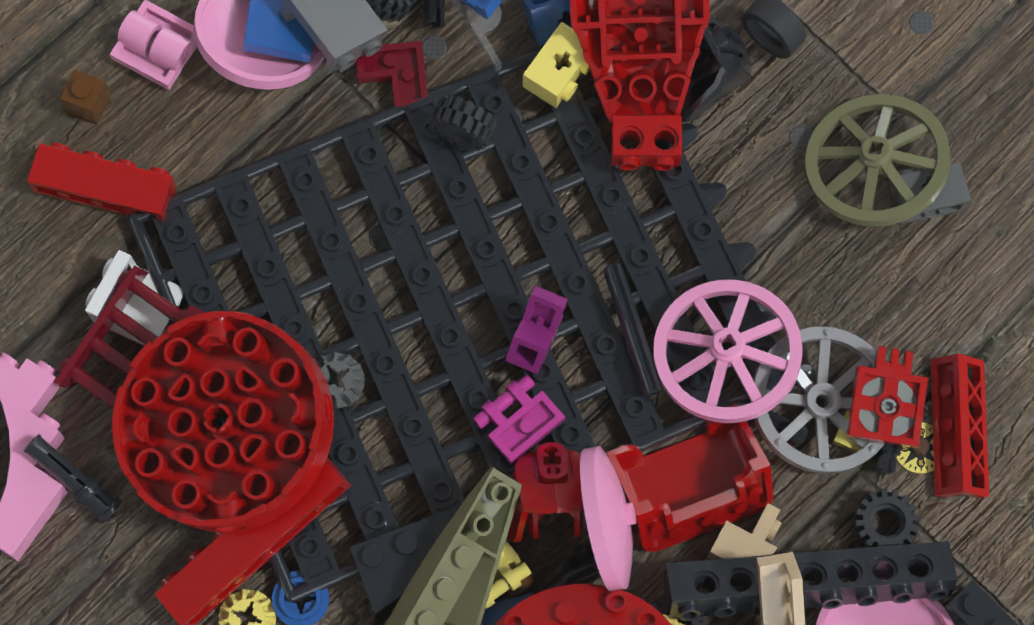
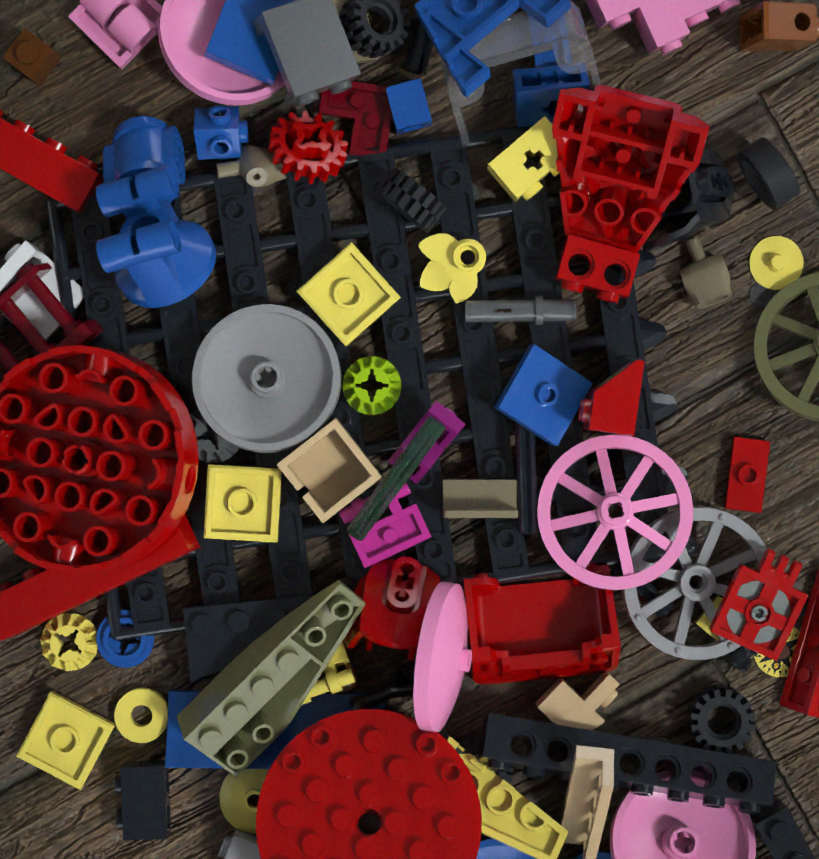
camera: 15 degrees right, 15 degrees up
(239, 216) = (155, 253): none -> blue piece
(273, 117) = (219, 132): none -> blue brick
(313, 137) = (254, 167): none -> dark tan piece
(356, 108) = (307, 147): none -> red gear
(373, 312) = (266, 378): none -> light grey dish
(381, 434) = (242, 503): none -> light yellow plate
(428, 223) = (348, 294): none -> light yellow plate
(438, 54) = (409, 106): none -> blue panel
(454, 378) = (331, 469): none -> tan piece
(462, 311) = (384, 398): none -> lime gear
(511, 178) = (446, 267): none -> light yellow plate
(517, 366) = (395, 478): none -> clear green axle
(600, 373) = (480, 498): none -> dark tan panel
(602, 193) = (521, 310): none -> dark grey pin
(631, 263) = (543, 395): none -> blue plate
(696, 250) = (614, 402): none -> red slope
(747, 132) = (706, 278): none -> dark tan piece
(805, 106) = (776, 262): none -> light yellow piece
(838, 295) = (747, 474): none -> red plate

